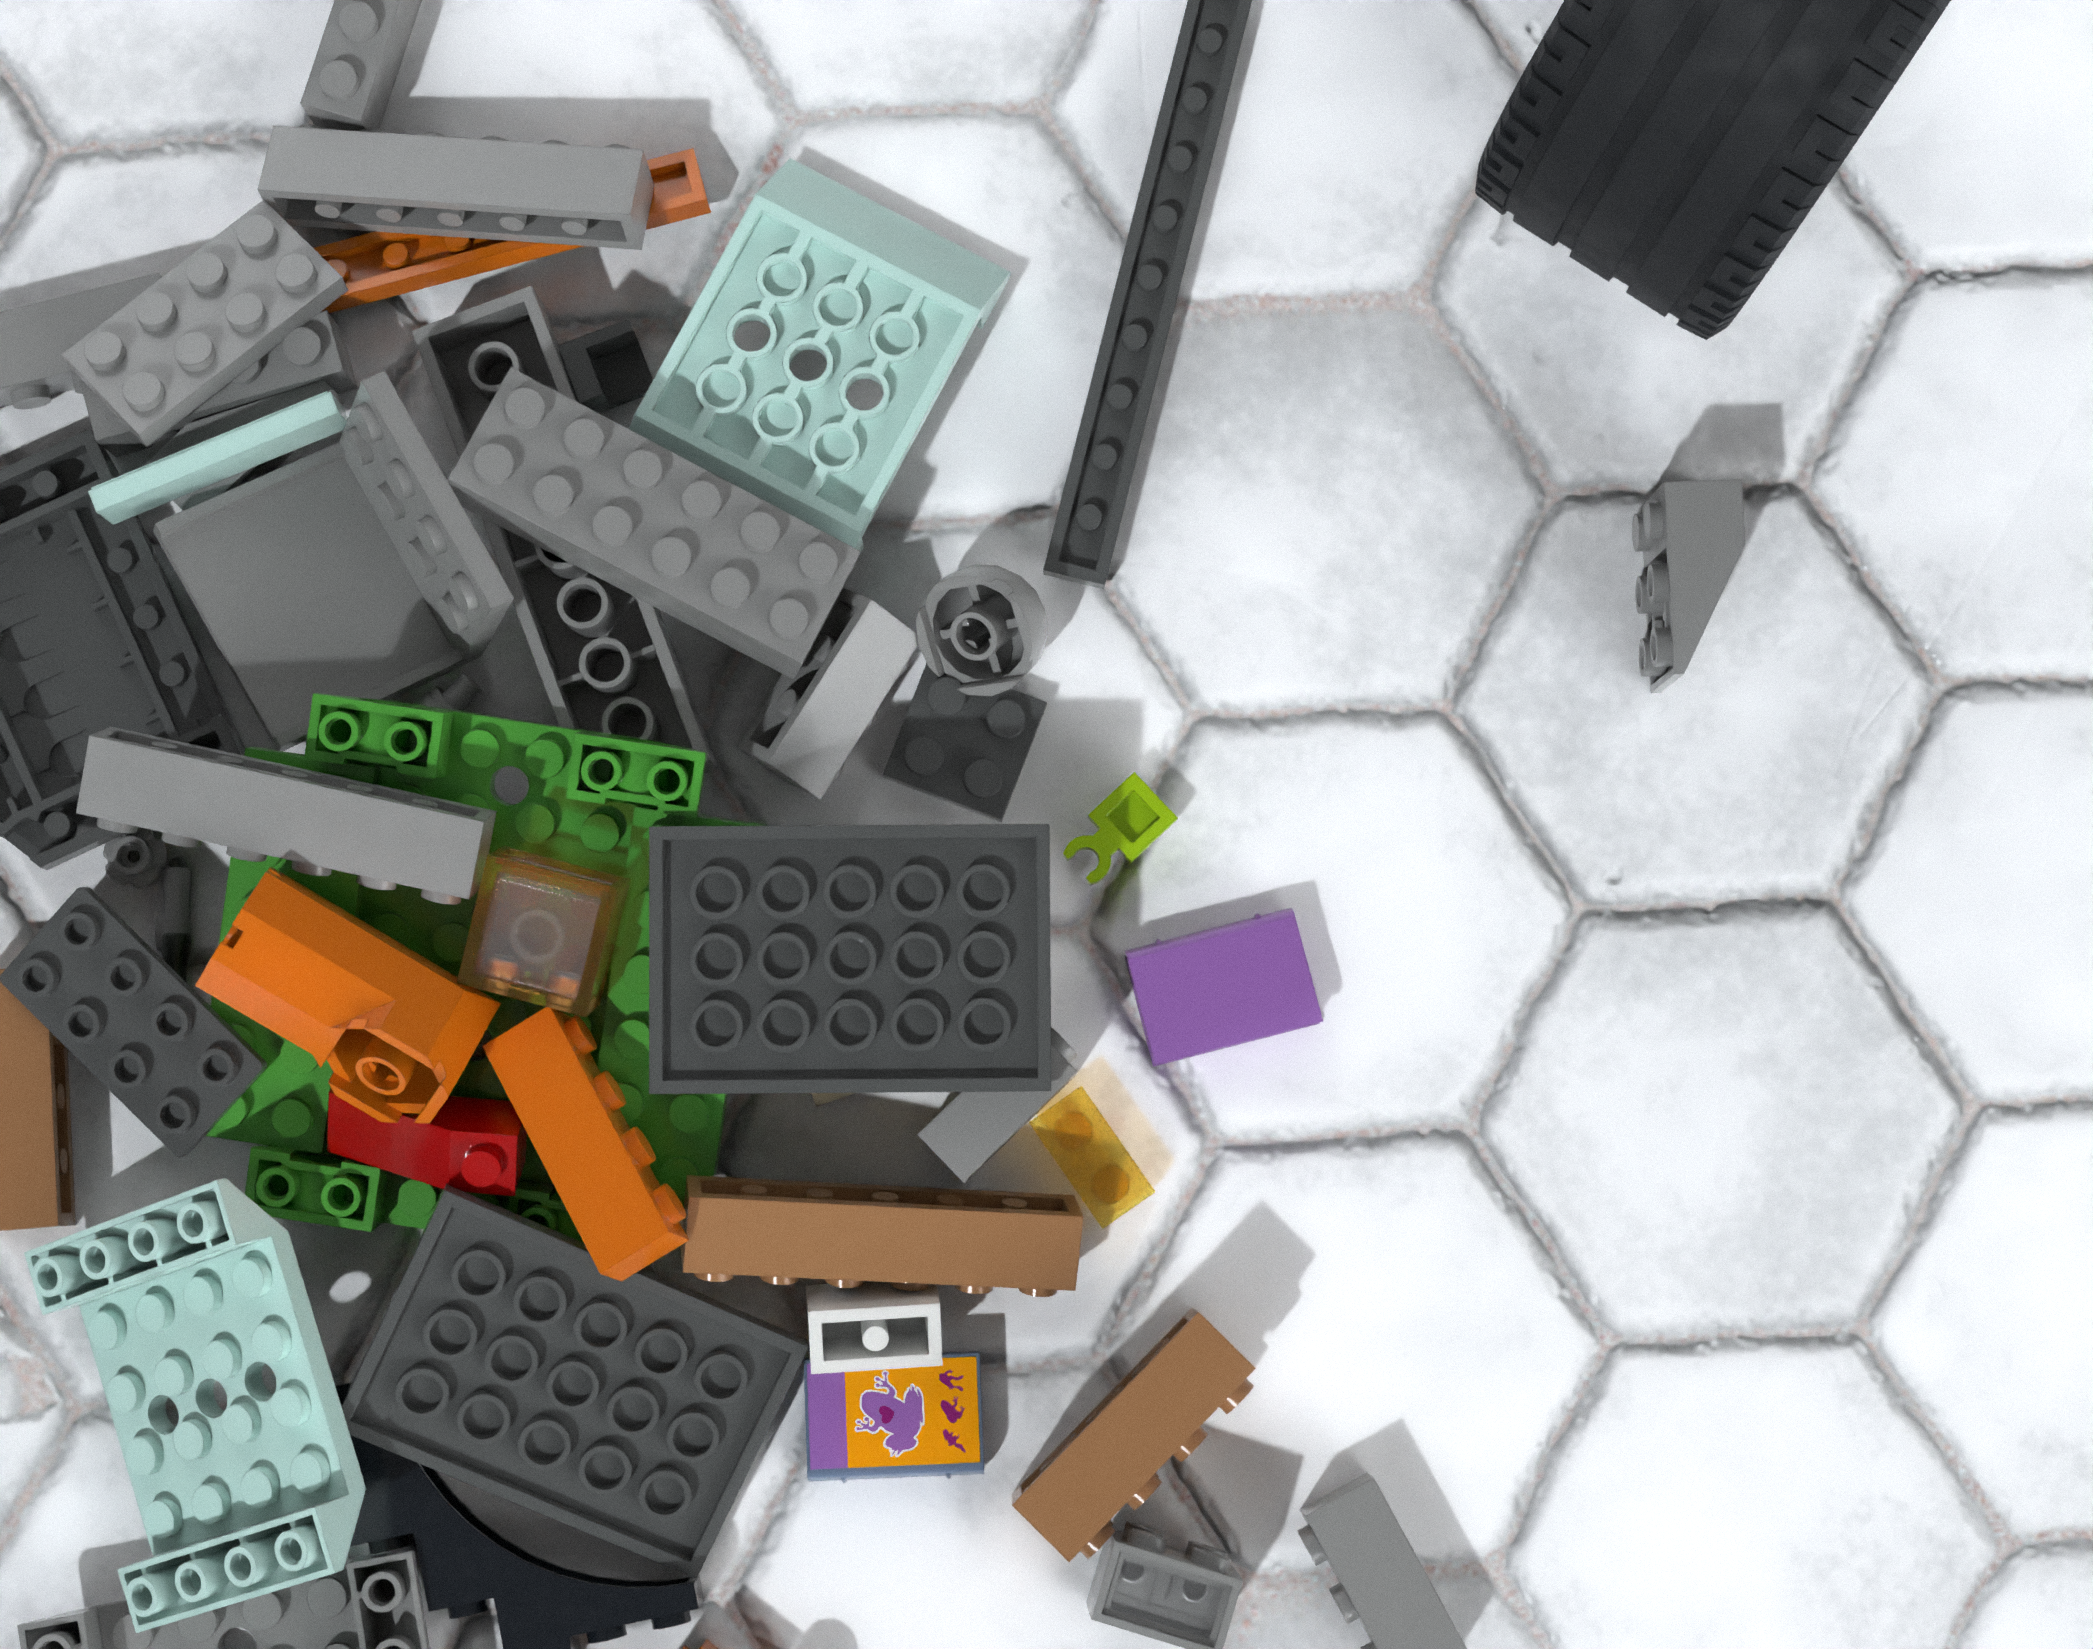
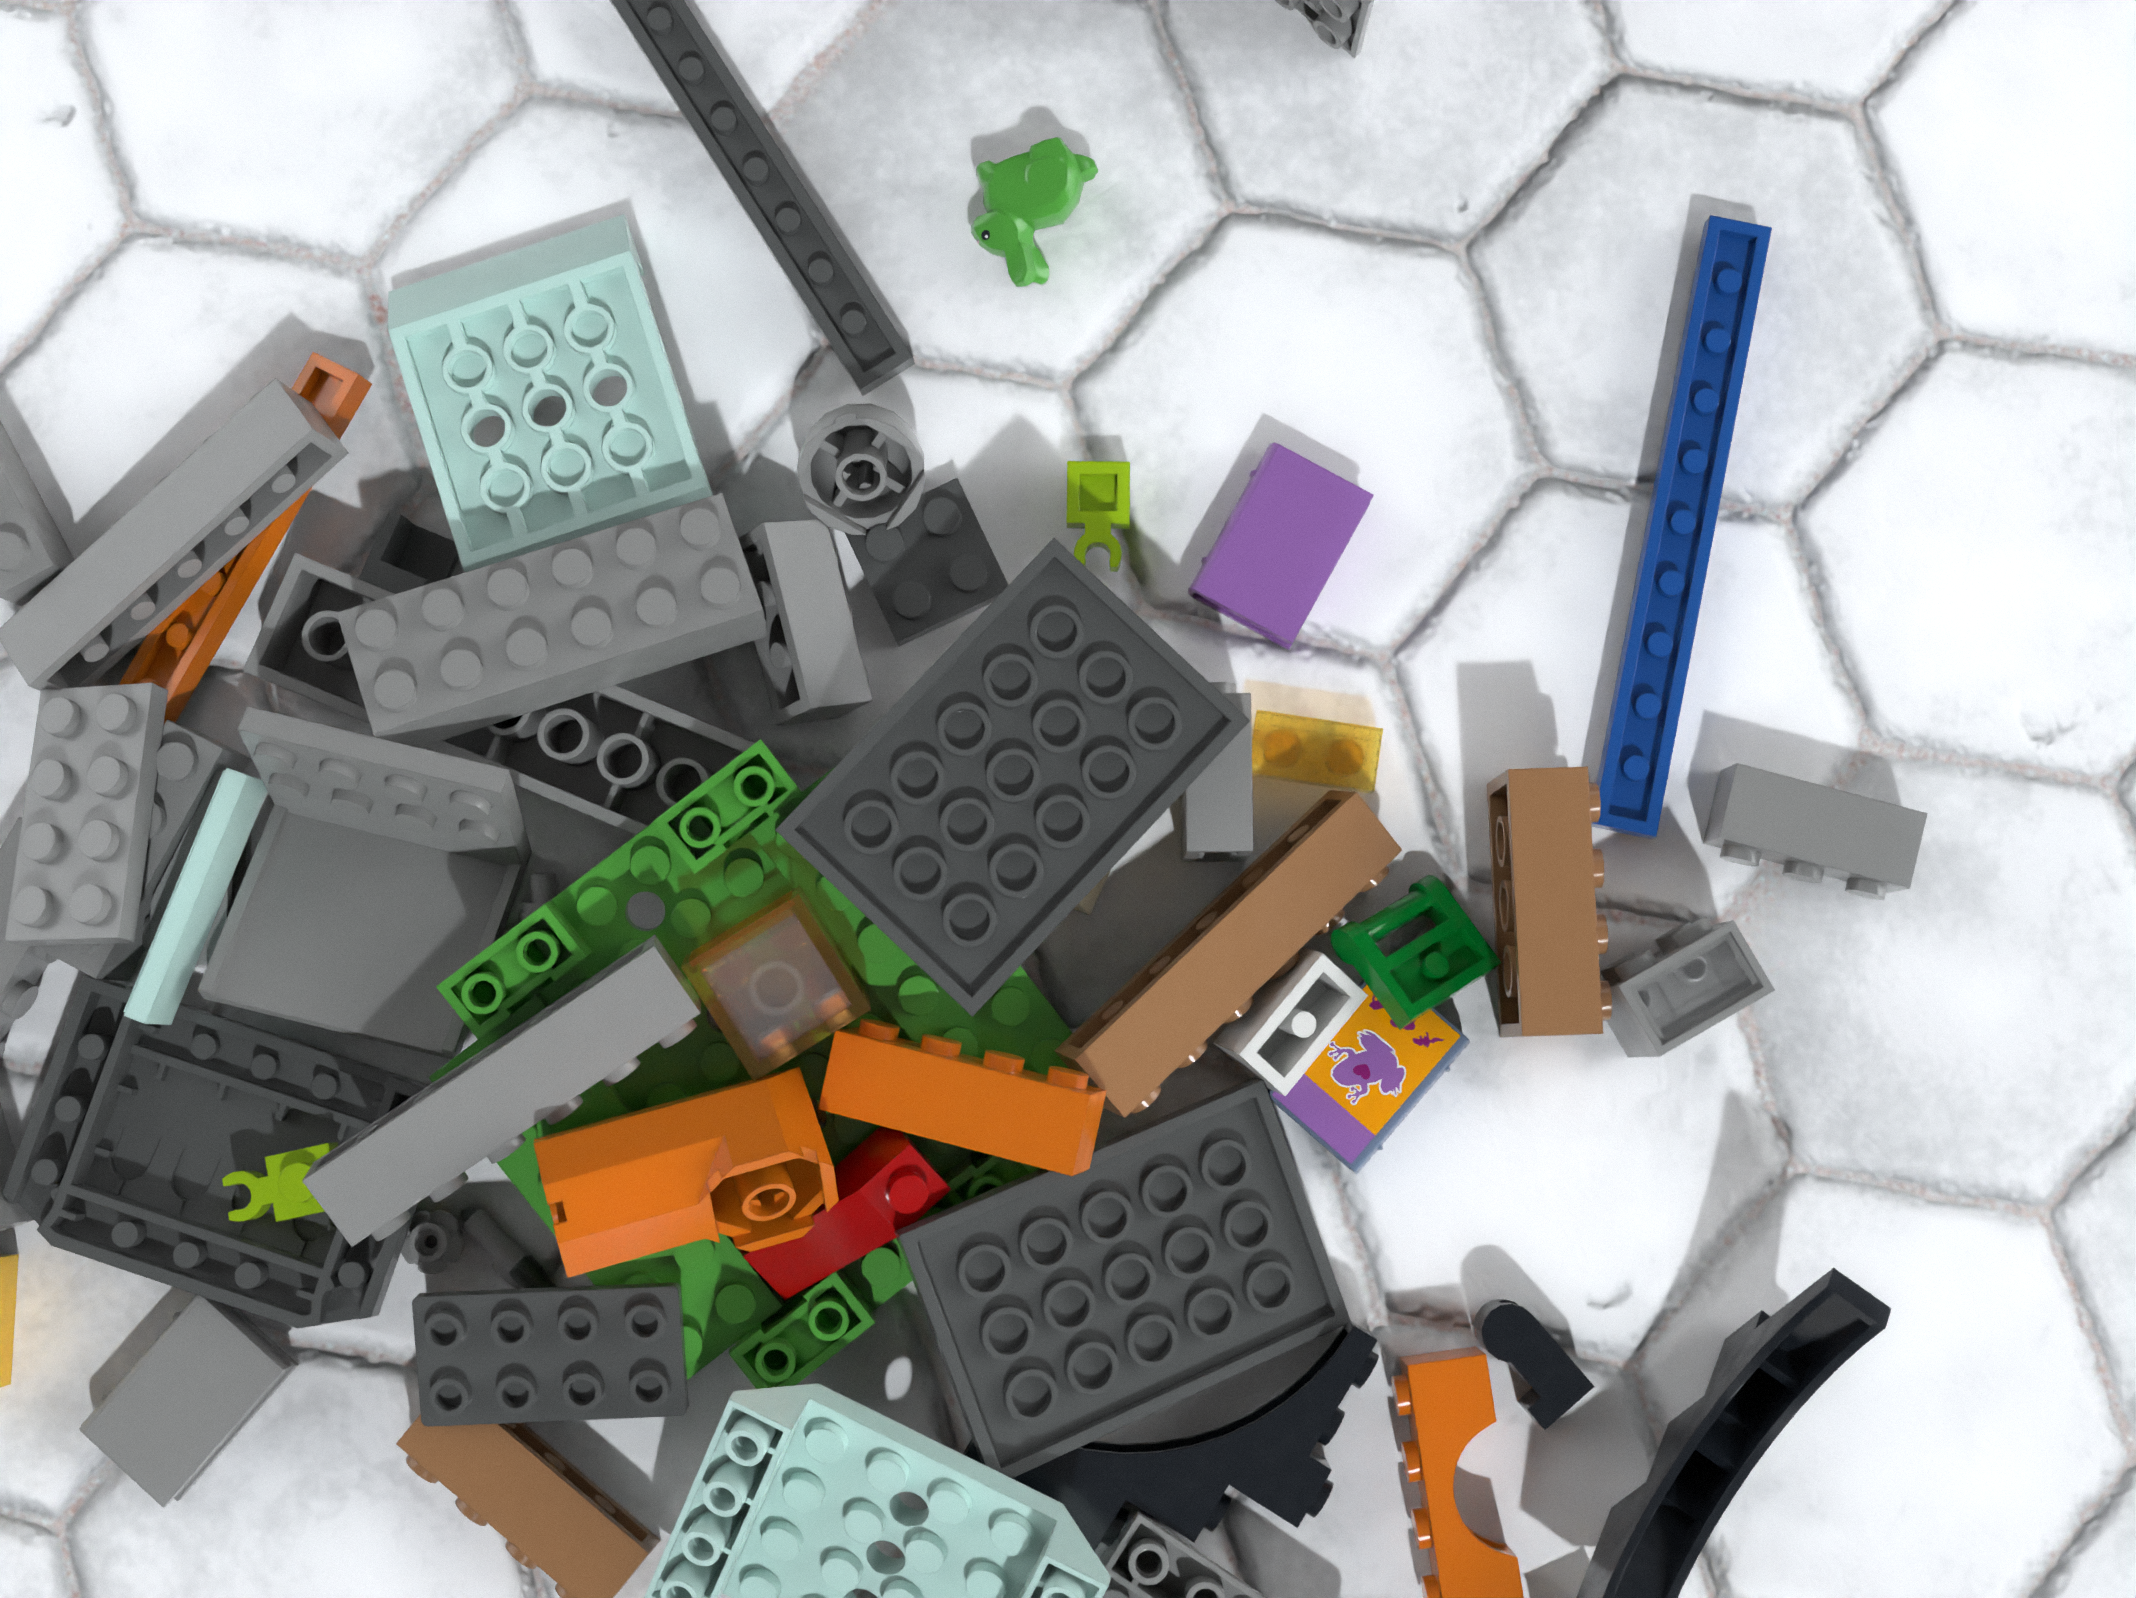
camera: 35 degrees left, 0 degrees up
(75, 715) = (281, 1187): none -> lime plate
(1004, 1390) = (1426, 968): none -> green plate
(1305, 553) = (1026, 196): none -> bright green animal
(1520, 1270) = (1680, 526): none -> blue plate

